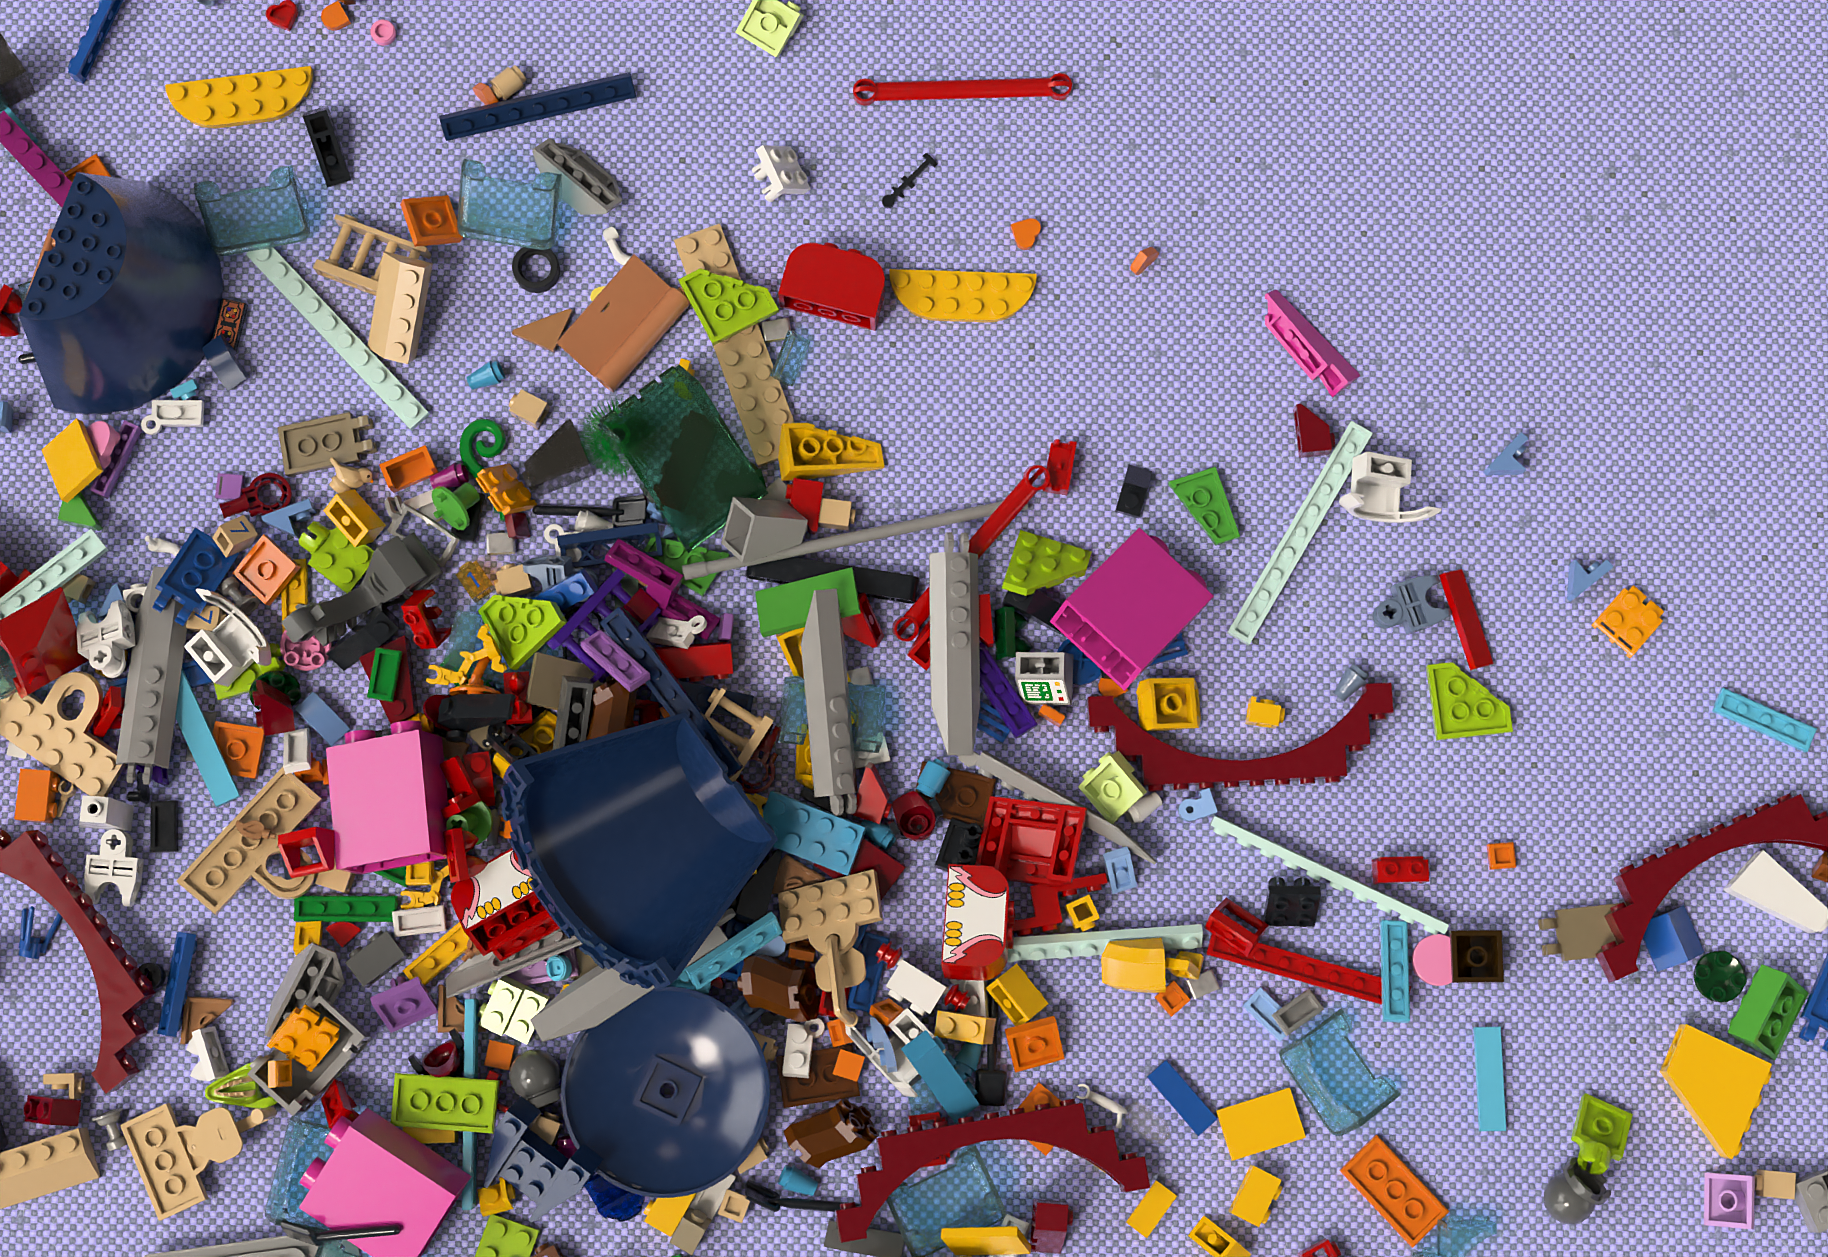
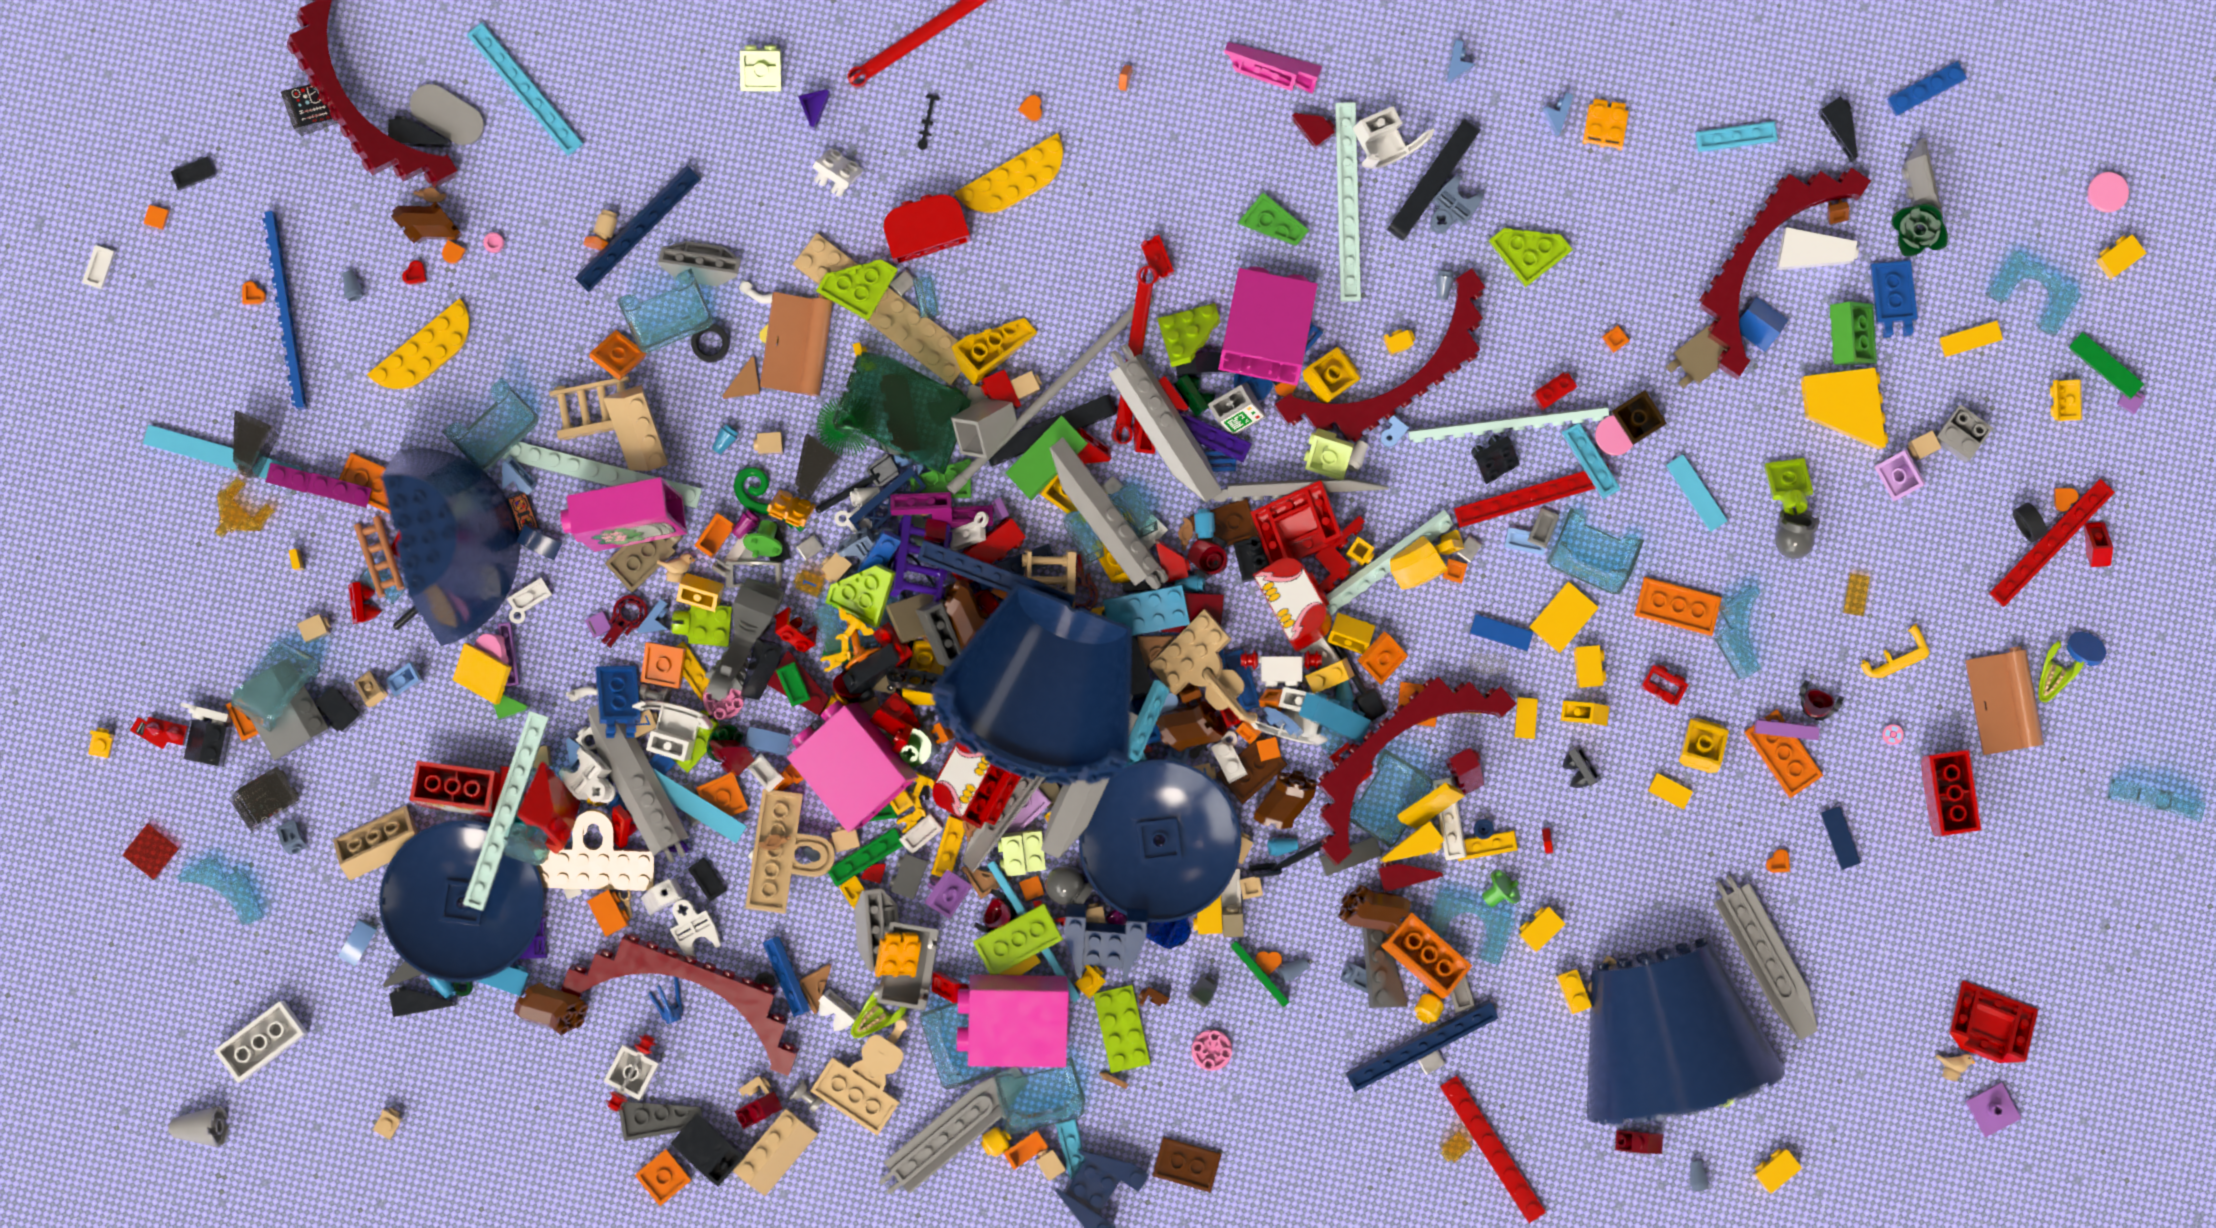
camera: 30 degrees left, 5 degrees up
(142, 793) = (678, 866): black bar -> none
(185, 390) = (524, 577): medium azure plate -> none
(235, 536) = (626, 655): tan brick -> none
(245, 274) = (514, 472): none -> medium blue slope
(279, 1073) = (897, 989): light orange tile -> none
(290, 850) = (805, 837): red tile -> none
(311, 1237) = (988, 1079): black piece -> none
(324, 385) = (625, 514): none -> dark pink brick
(326, 146) = (509, 347): black slope -> none
(461, 865) = (928, 778): red tile -> none
(517, 526) = (814, 528): dark red tile -> none
(558, 967) = (1036, 805): medium azure tile -> none
(615, 660) = (945, 578): medium lavender tile -> none
(800, 92) = (814, 105): none -> dark purple slope
(907, 776) = (1185, 533): none -> medium nougat piece
(1051, 715) = (1257, 431): orange tile -> none
(1106, 1103) = (1453, 667): white piece -> none
(1119, 870) = (1367, 507): light blue plate -> none
(1133, 491) = (1217, 243): black slope -> none
(1231, 931) = (1468, 502): red tile -> none
(1407, 565) = (1433, 179): none -> black beam
(1466, 619) = (1495, 192): red tile -> none
(1719, 976) = (1807, 330): dark green dish -> none

